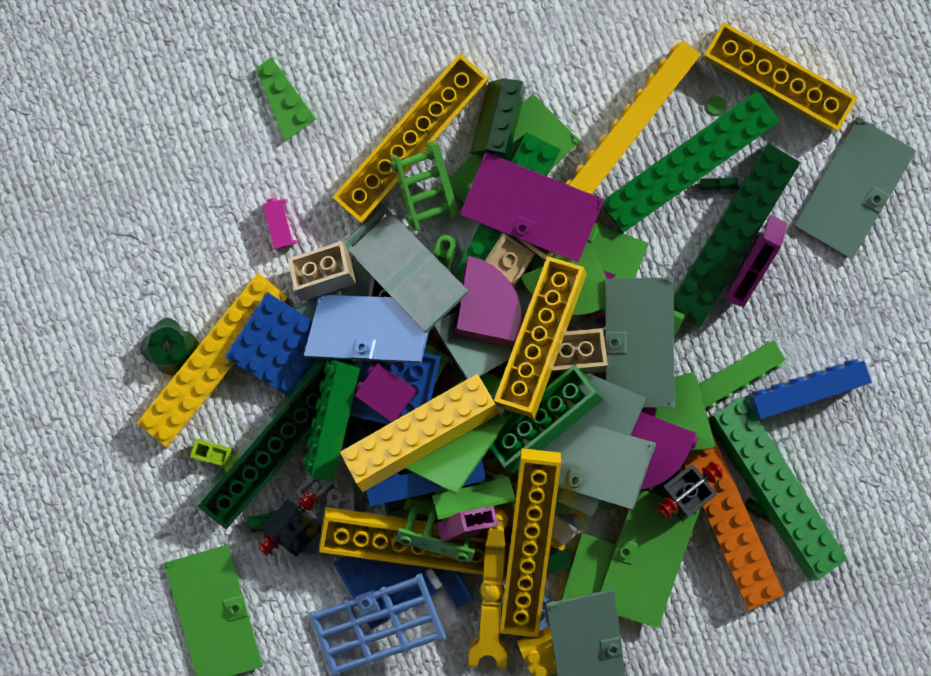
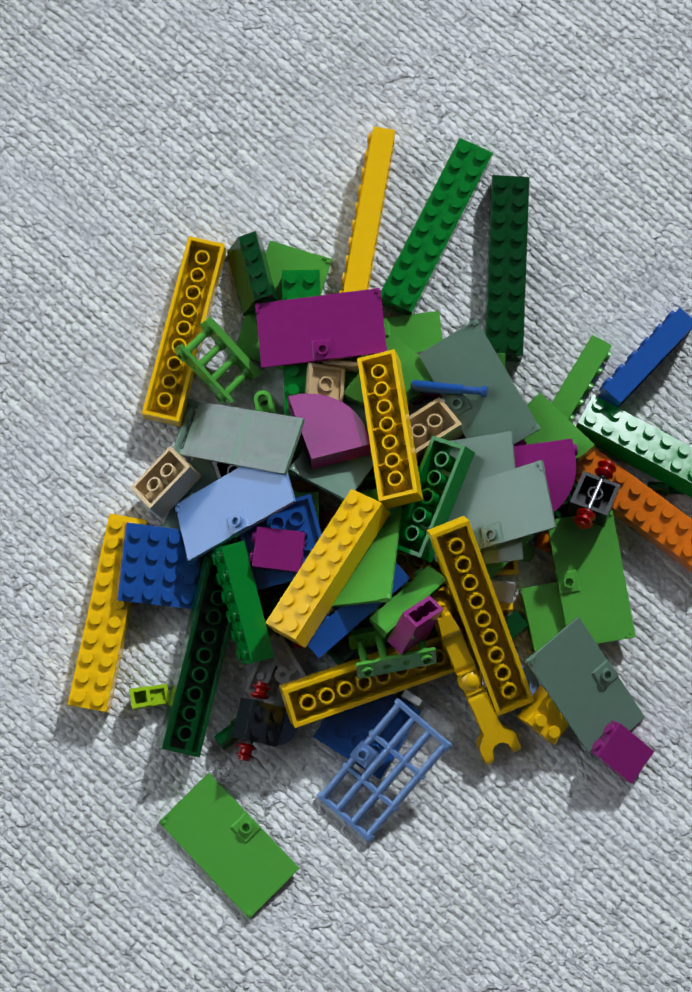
camera: 30 degrees left, 10 degrees down
(183, 346) = (71, 633): dark green brick -> none
(278, 223) = (106, 463): dark pink brick -> none
(286, 104) = (58, 358): bright green wing -> none
(456, 587) = (436, 698): blue panel -> none
(599, 315) = (446, 388): none -> blue piece
(716, 105) = (431, 172): bright green piece -> none
(719, 183) = (470, 232): dark green axle -> none
(757, 261) = (540, 275): magenta brick -> none
(779, 78) = (472, 120): yellow brick -> none
(855, 188) = (586, 178): sand green door -> none

